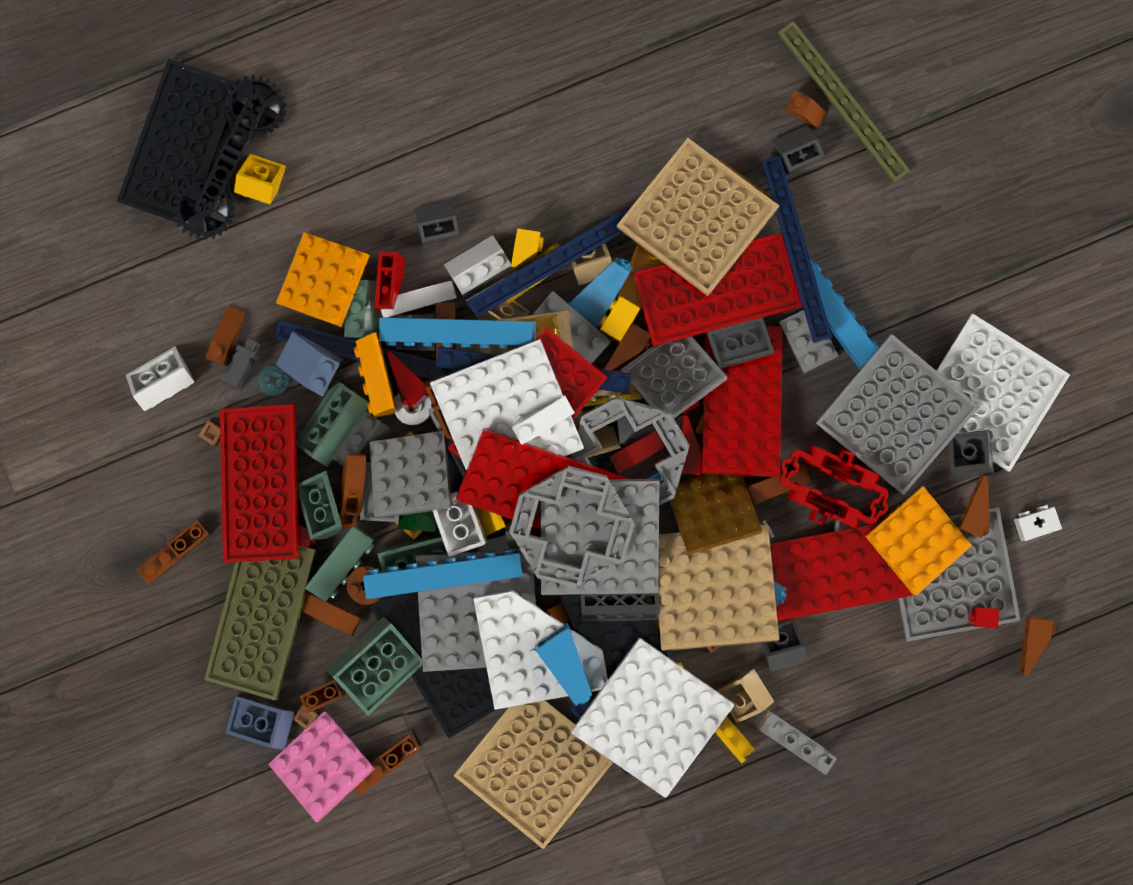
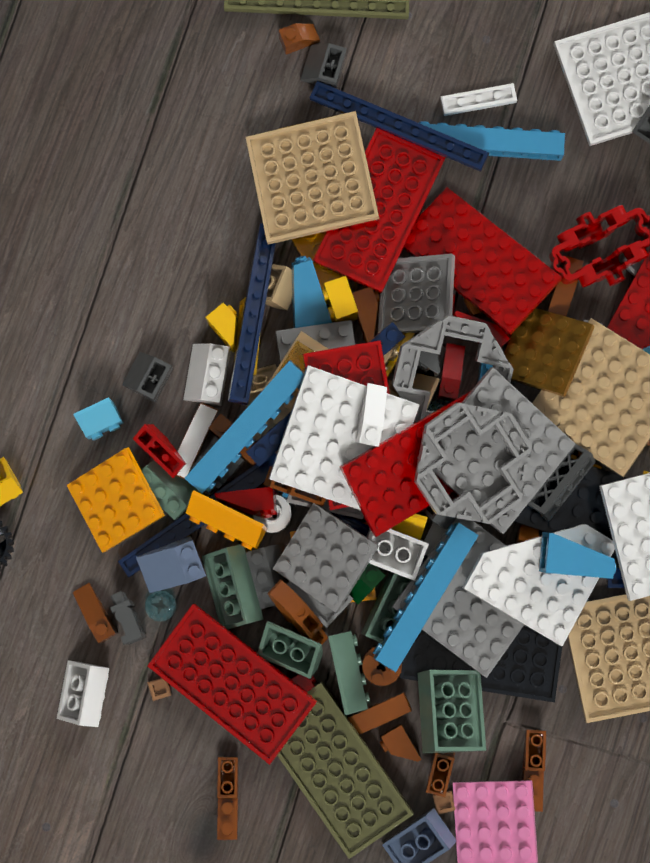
camera: 50 degrees left, 5 degrees down
(319, 647) = (399, 744): none -> dark orange slope
(373, 213) = (99, 419): none -> medium azure slope
(740, 343) = (434, 225): dark grey plate -> none
(806, 352) = (471, 181): light grey plate -> none
(875, 293) = (478, 99): none -> white tile
(897, 414) = (585, 155): light grey plate -> none

